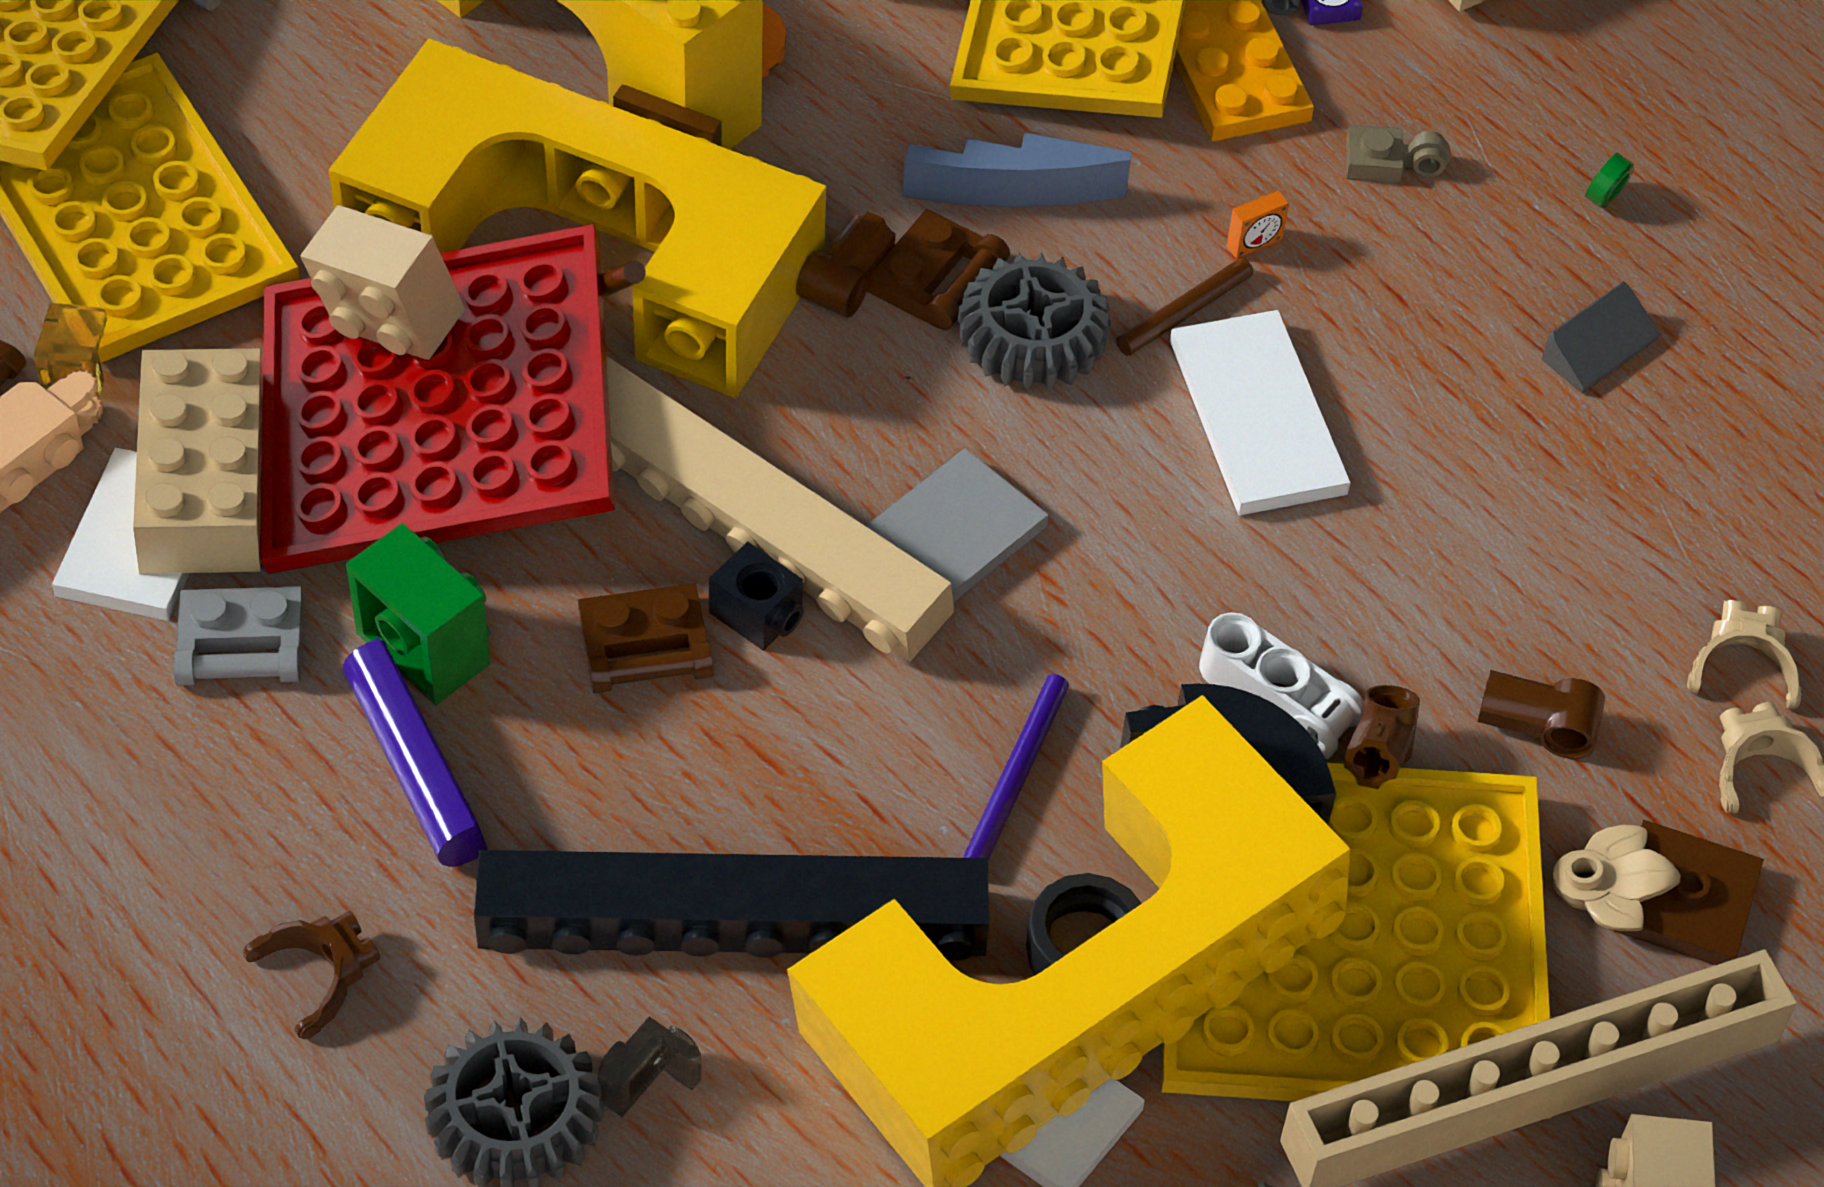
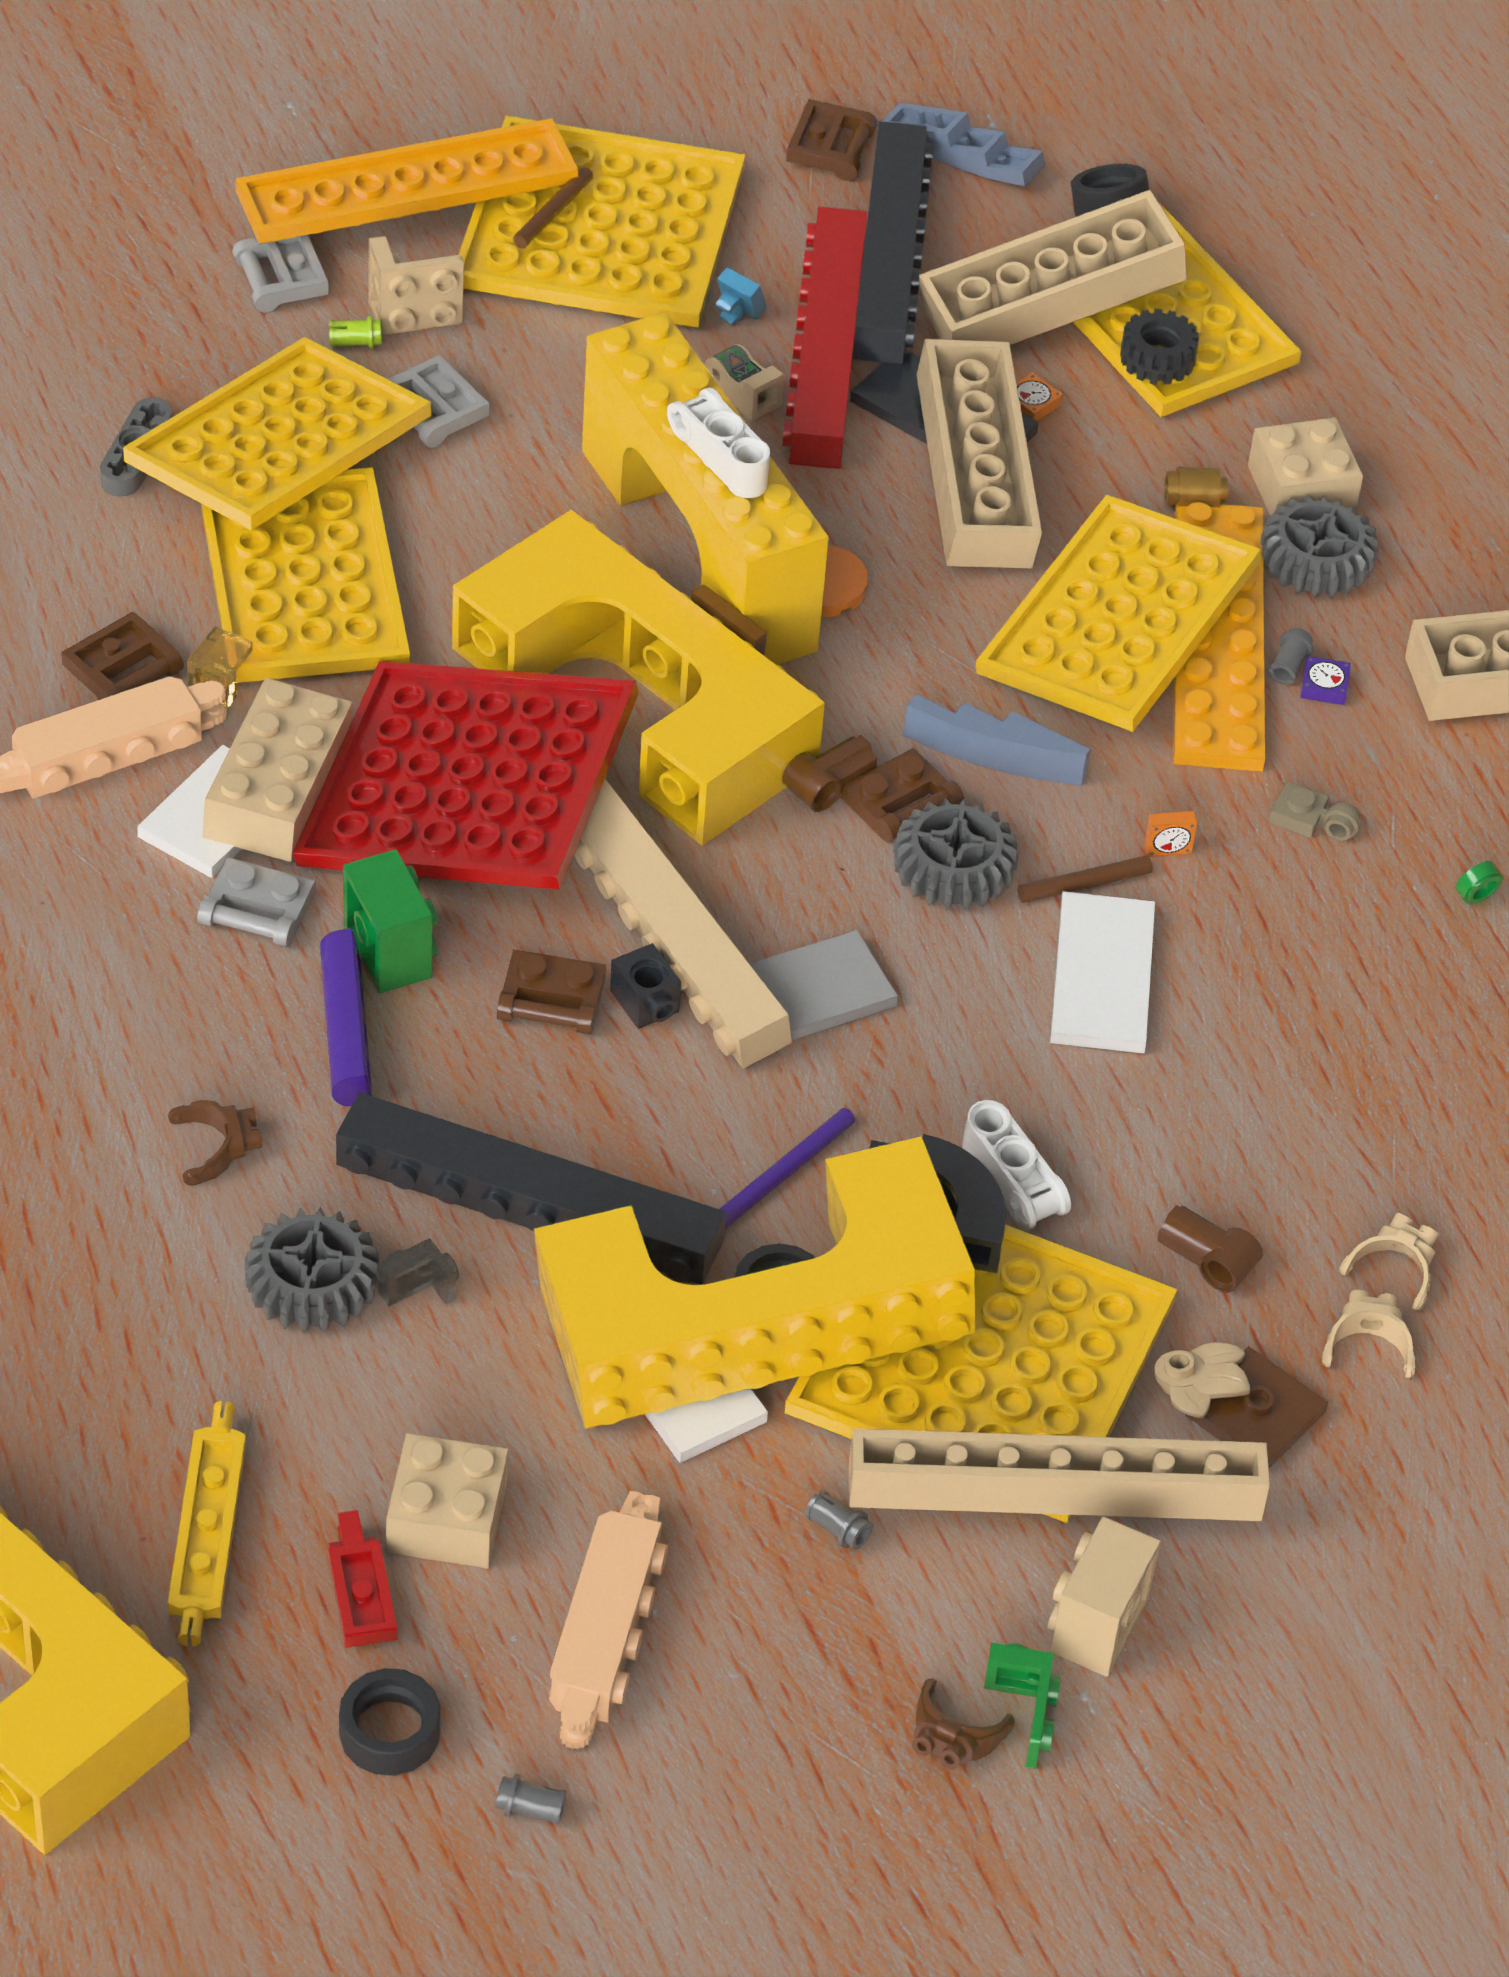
camera: 20 degrees right, 5 degrees down
(382, 282) = (456, 677): tan brick -> none
(622, 277) = (635, 726): reddish brown bar -> none
(1383, 735) = (1069, 1224): reddish brown piece -> none
(1600, 338) = (1407, 997): dark grey slope -> none

